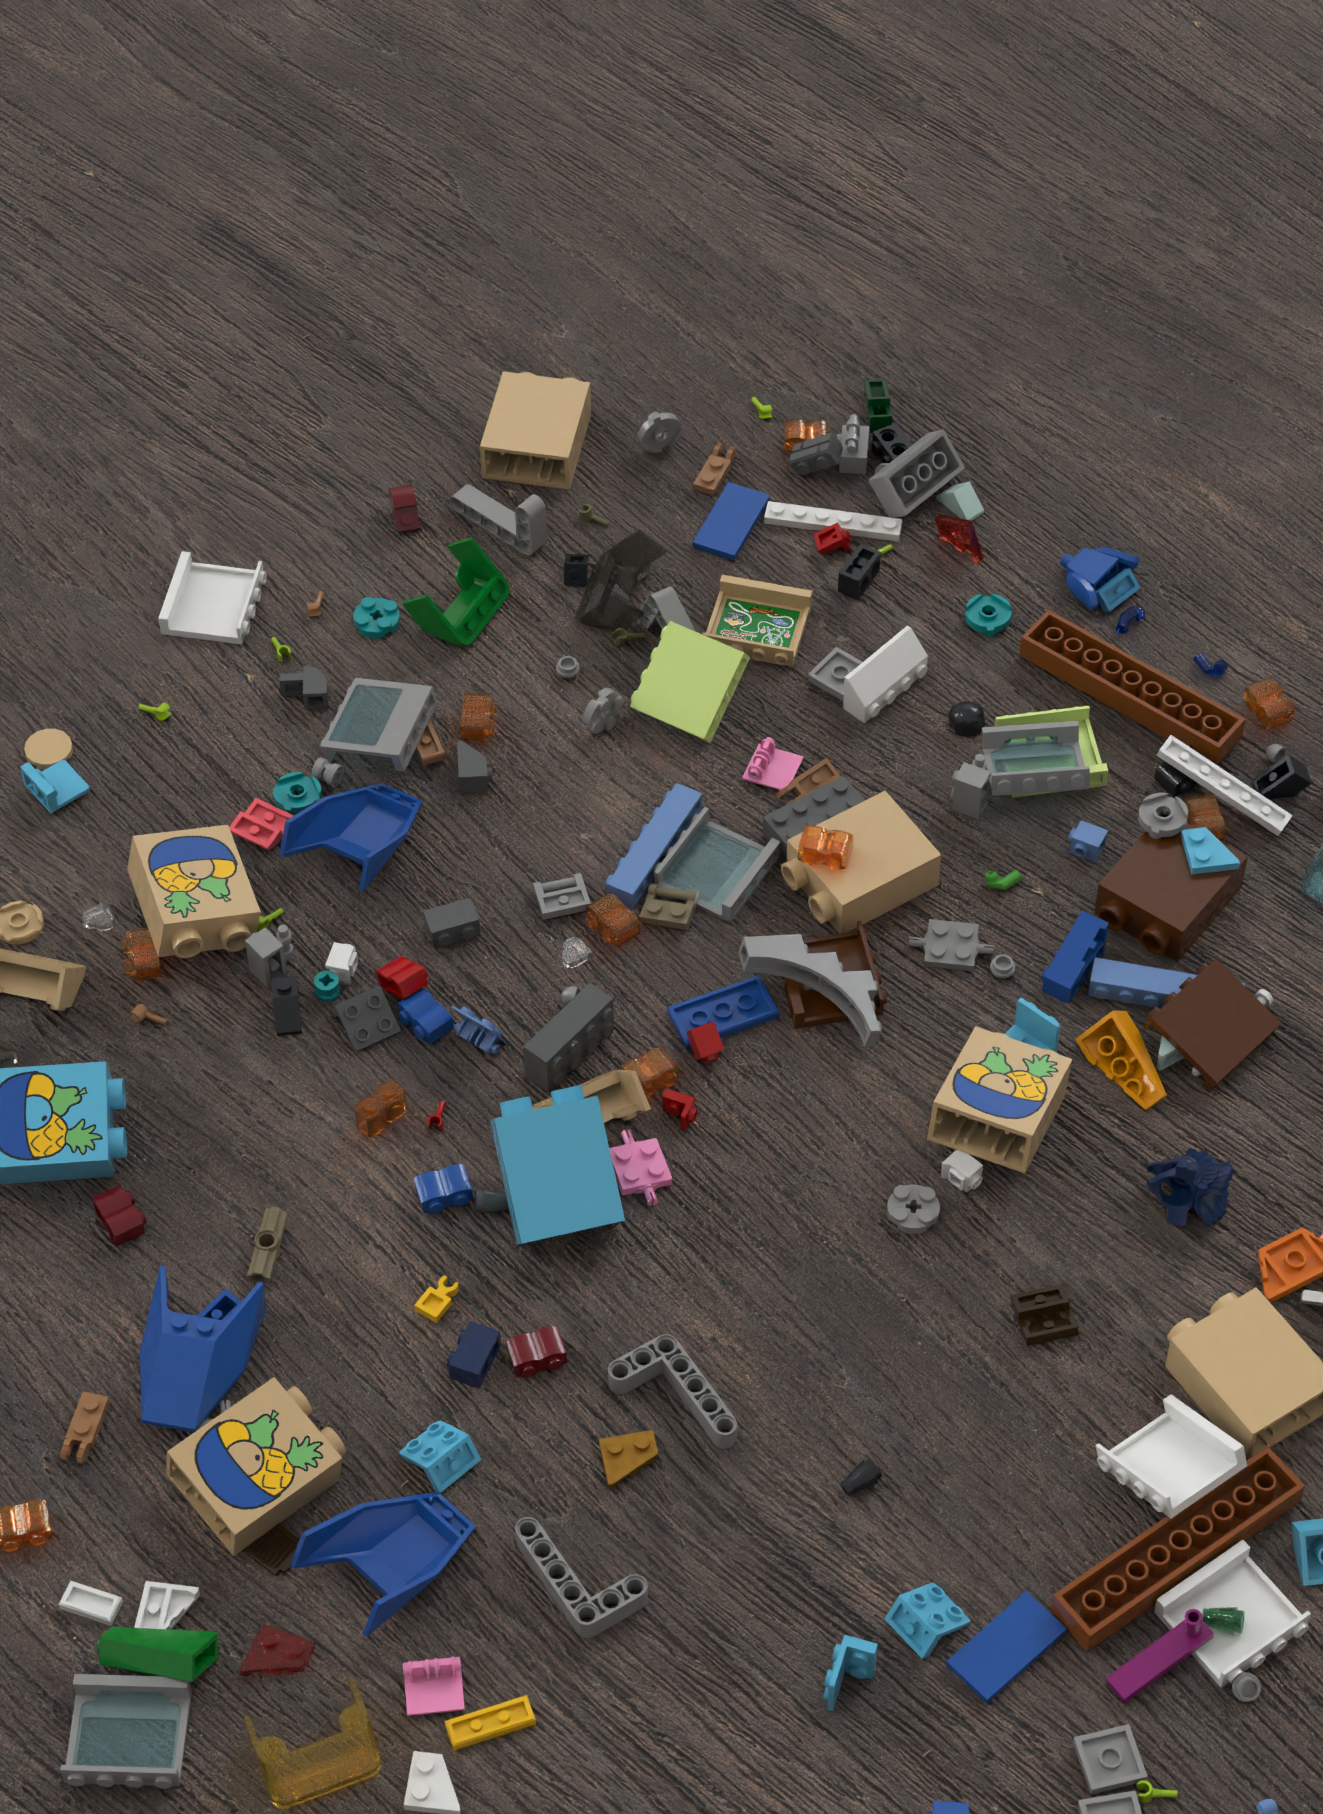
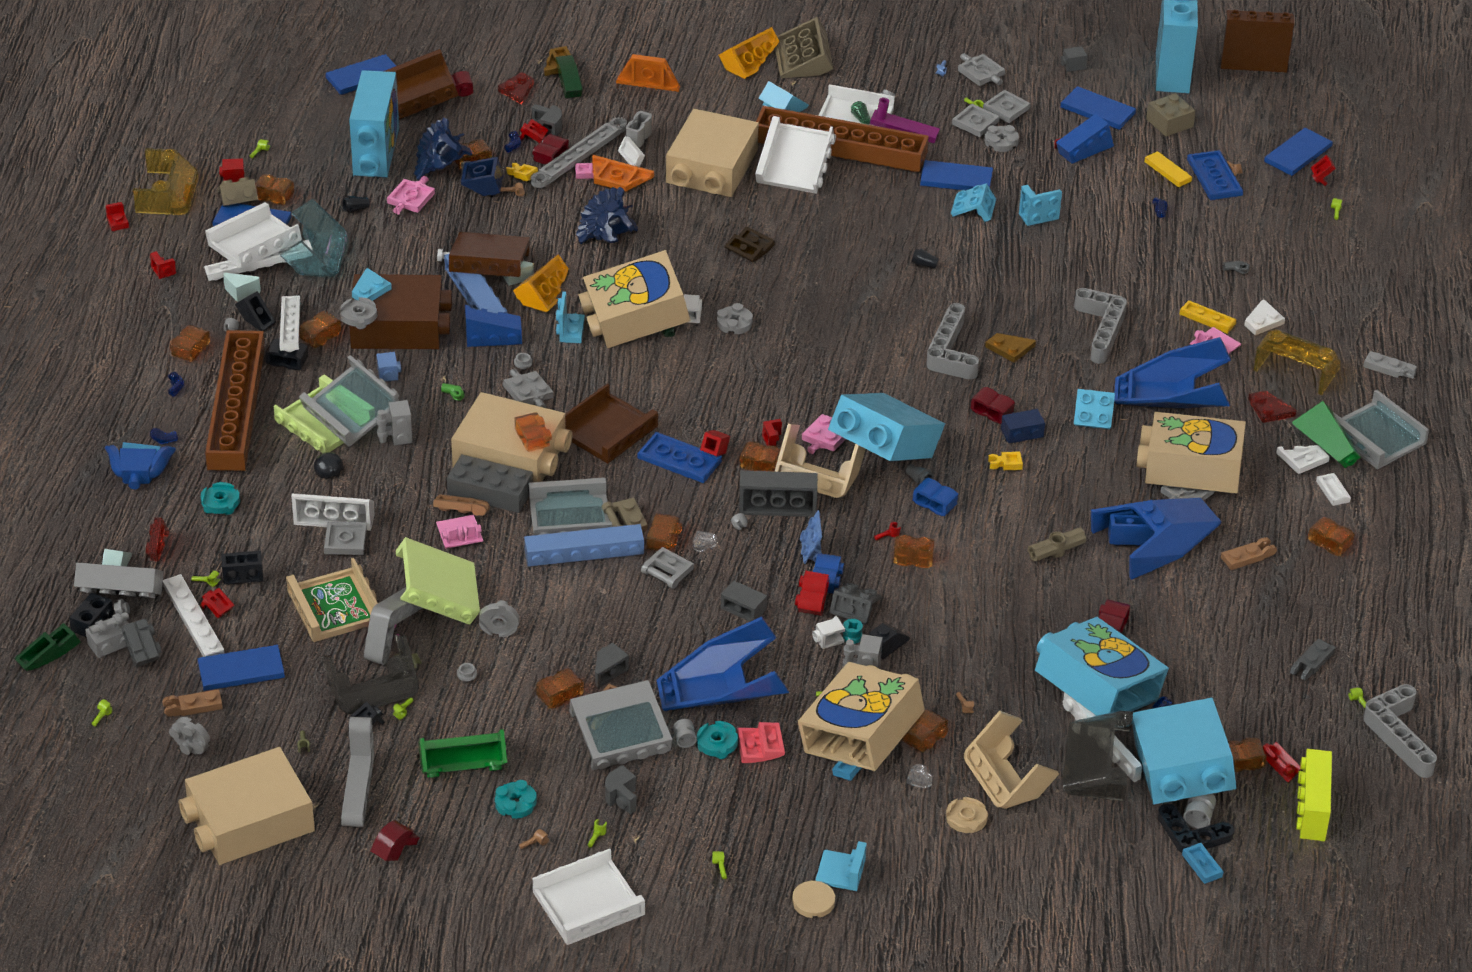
camera: 130 degrees left, 10 degrees down
(565, 595) = (400, 710): none -> lime hand
(800, 431) = (117, 667): clear orange brick -> none
(820, 971) = (619, 418): light grey arch -> none
(1047, 1751) = (1001, 138): none -> light grey plate

